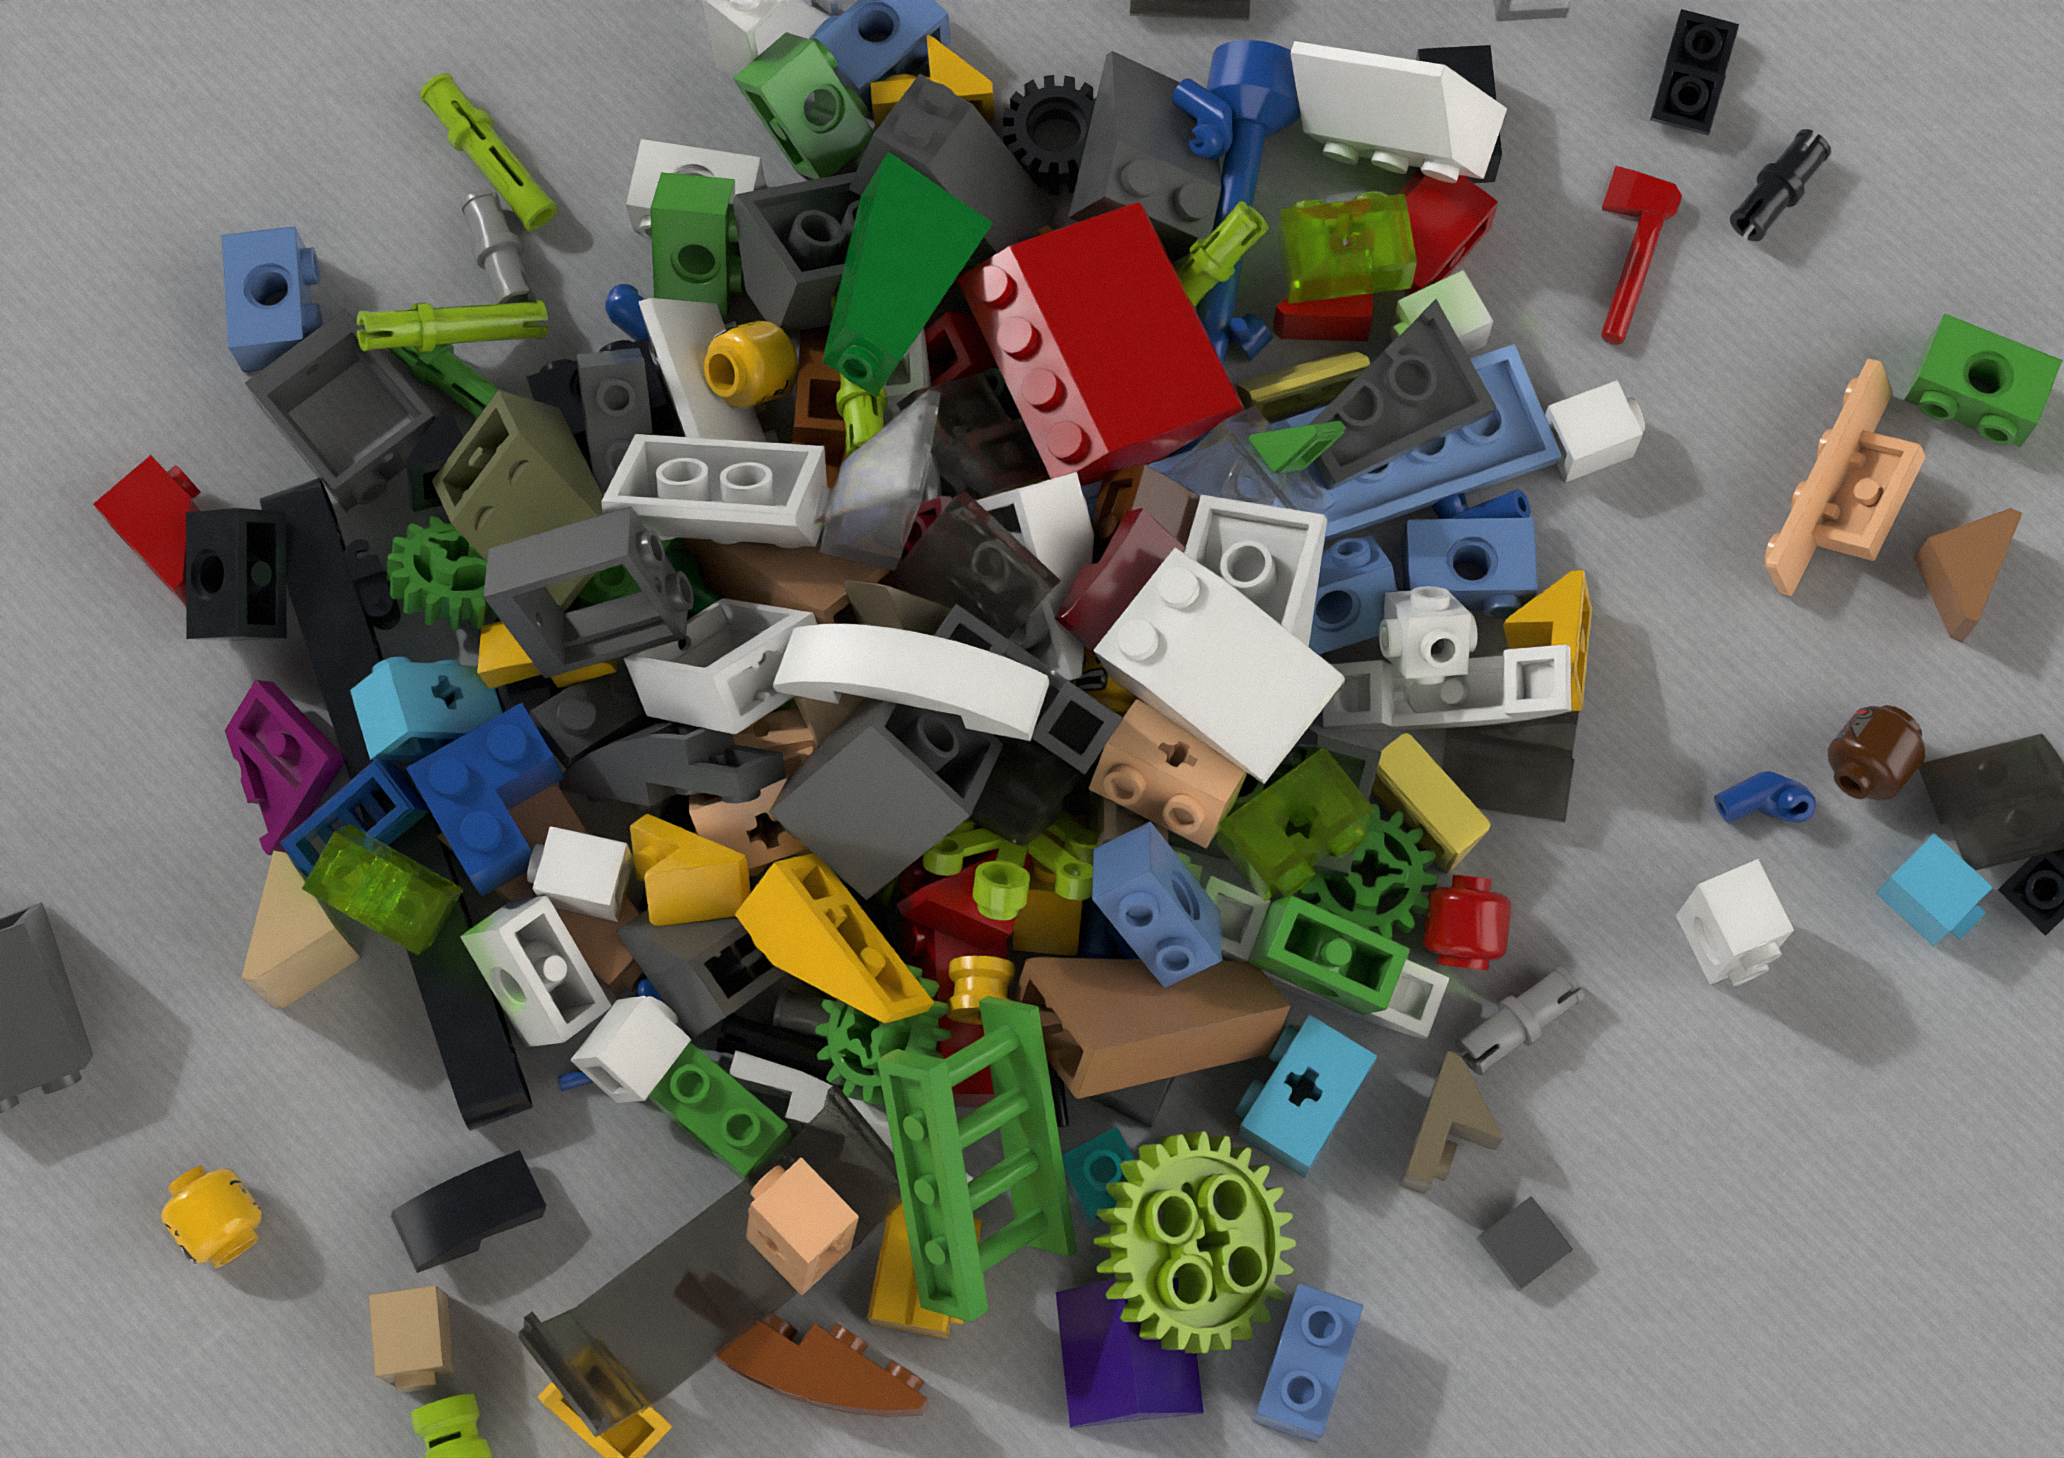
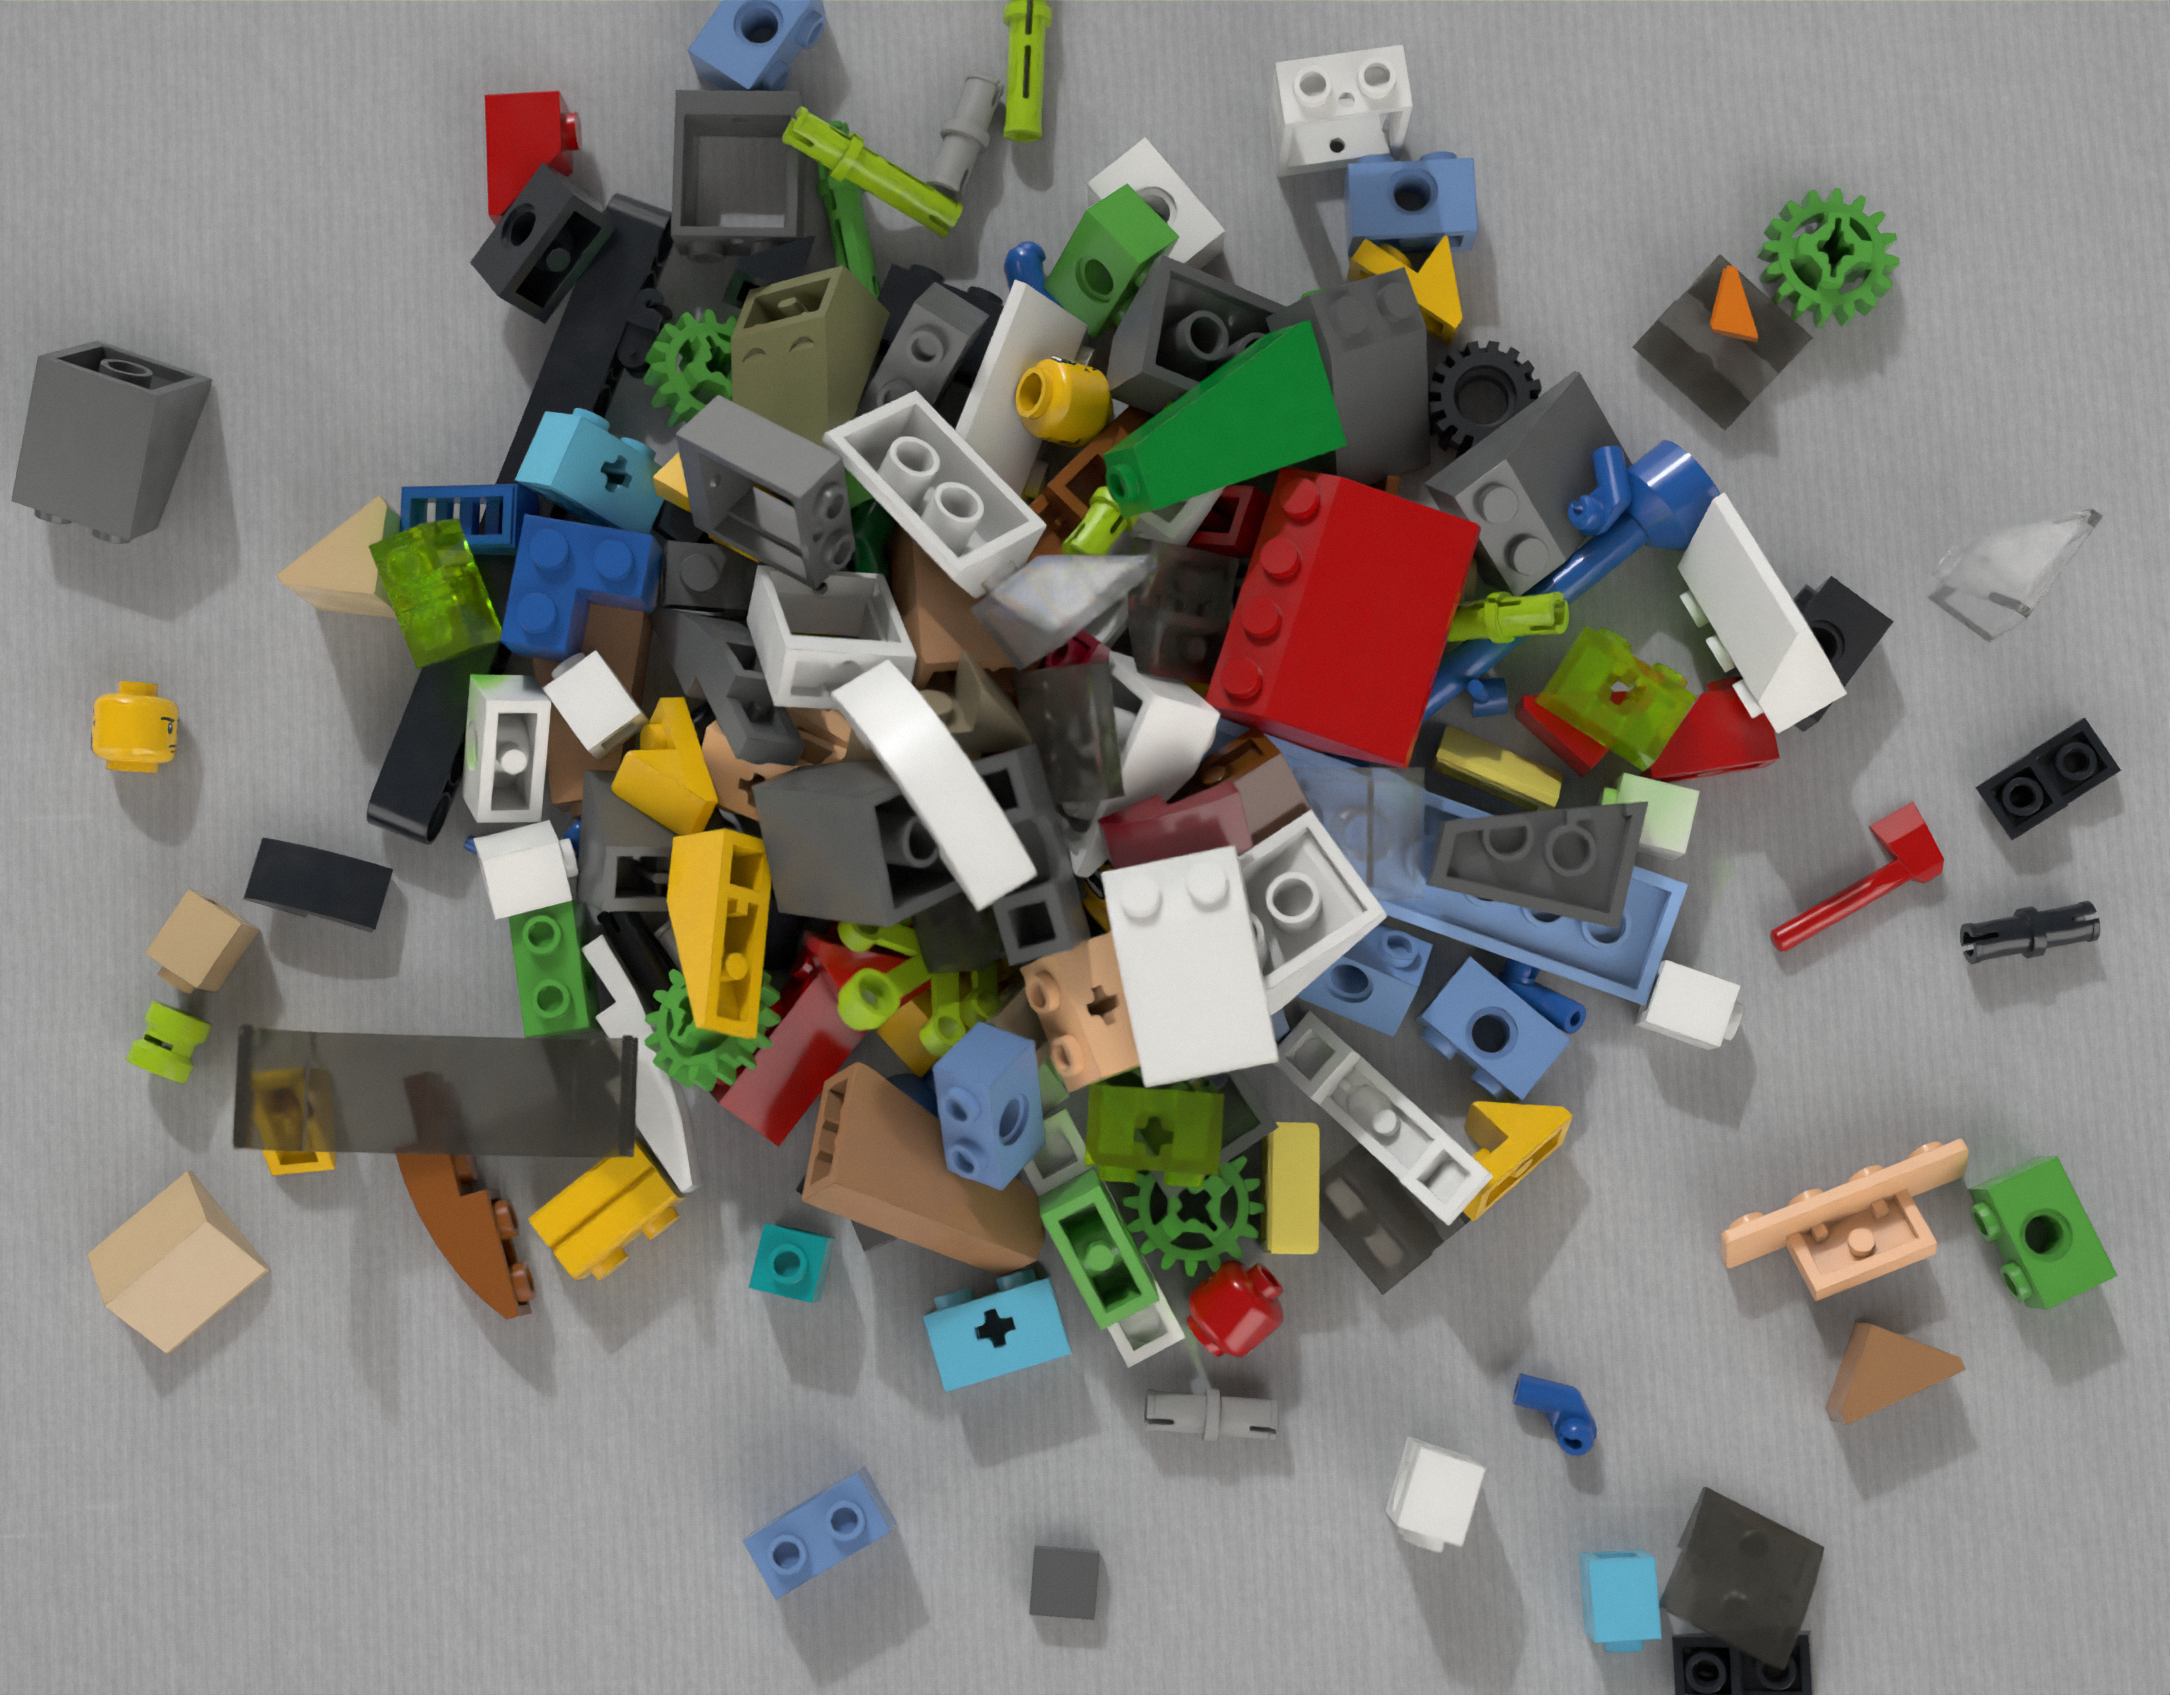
camera: 45 degrees right, 10 degrees up
(281, 760) = (465, 417): magenta wing -> none
(777, 90) = (1289, 183): bright green brick -> none
(799, 1224) = (519, 1114): light nougat brick -> none
(932, 1167) = (654, 1147): bright green fence -> none
(974, 980) = (810, 1051): yellow wheel -> none
(1115, 1372) = (704, 1406): dark purple slope -> none
(1195, 1242) = (811, 1374): lime gear -> none
(1297, 446) = (1419, 829): bright green slope -> none
(1427, 634) = (1399, 1063): white brick -> none
(1452, 1109) = (1097, 1435): dark tan slope -> none
(1876, 752) = (1674, 1452): reddish brown head -> none

